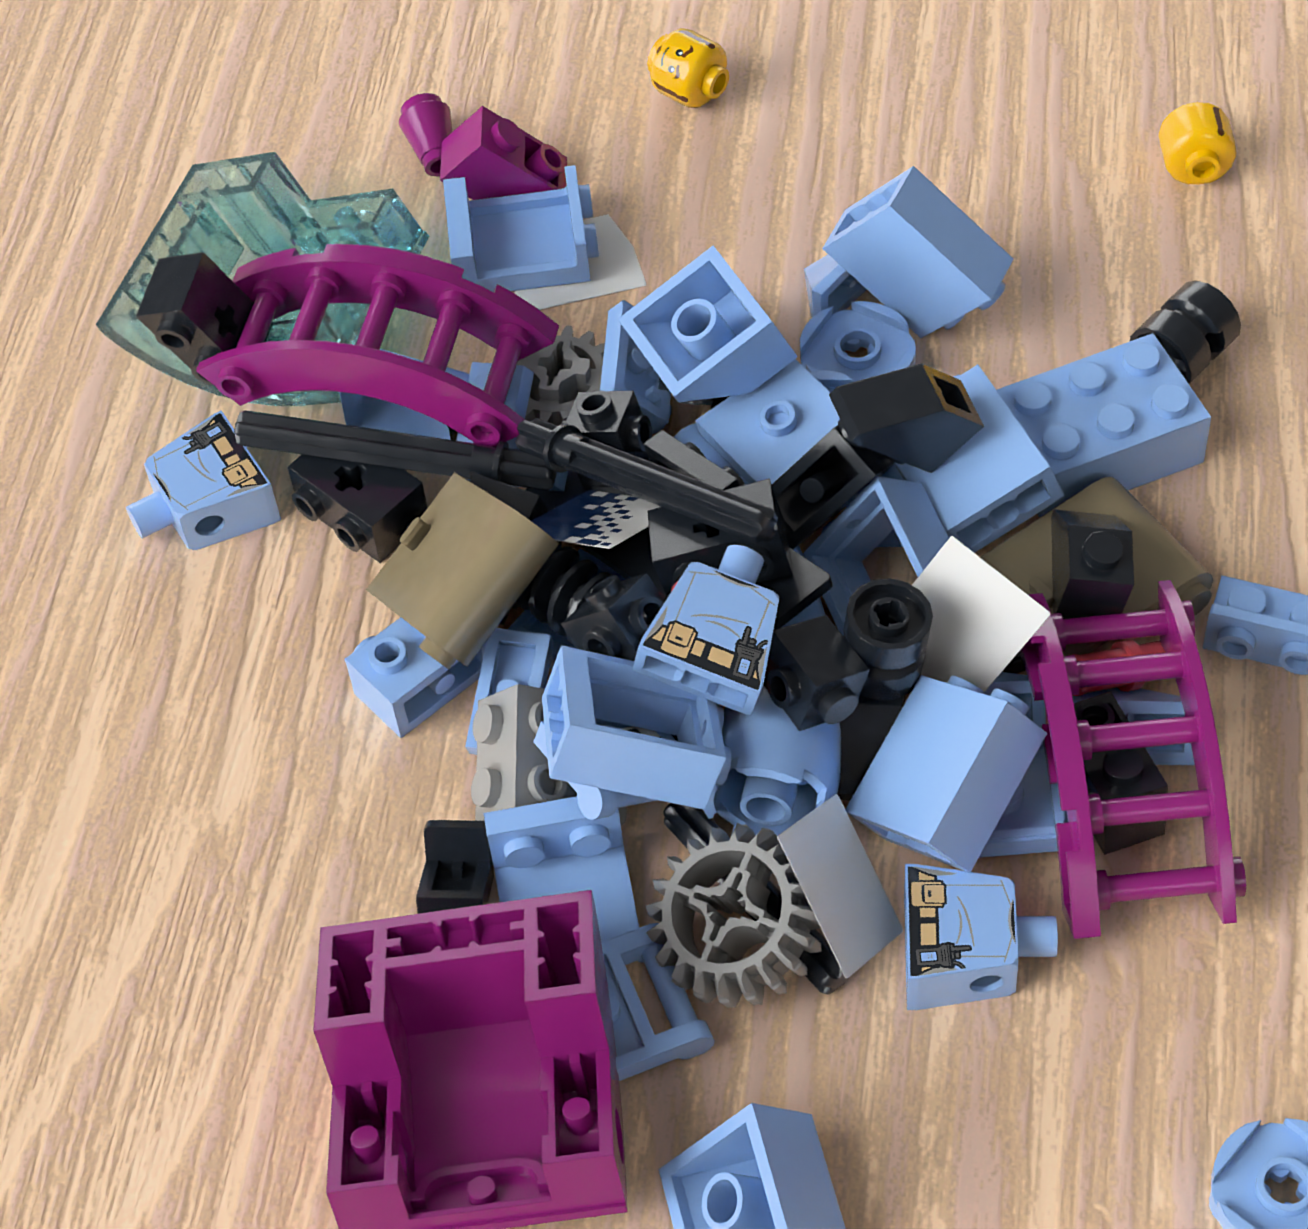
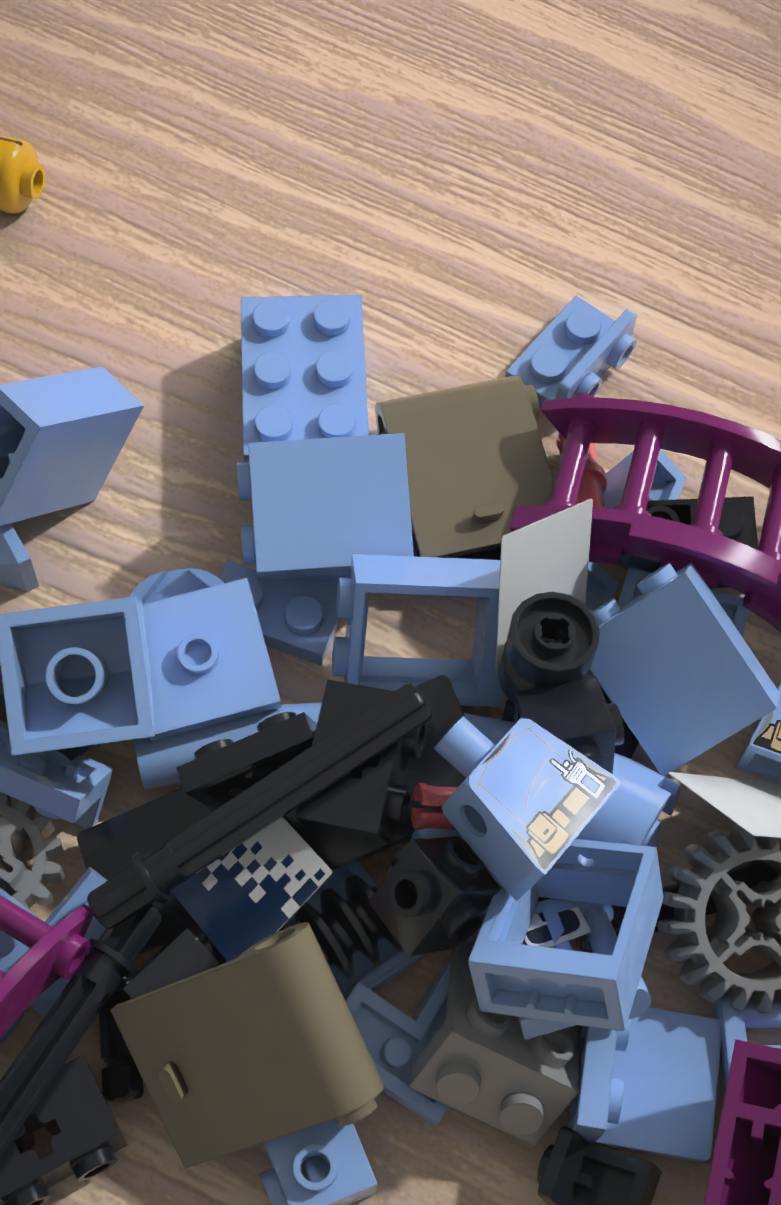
camera: 80 degrees left, 10 degrees up
(611, 420) = (118, 823): black brick -> none
(825, 483) = (309, 630): black slope -> none
(864, 325) = (106, 528): light blue plate -> none
(907, 415) = (308, 524): black slope -> none
(1090, 564) = (493, 451): black slope -> none
(1193, 327) = (225, 267): black wheel -> none

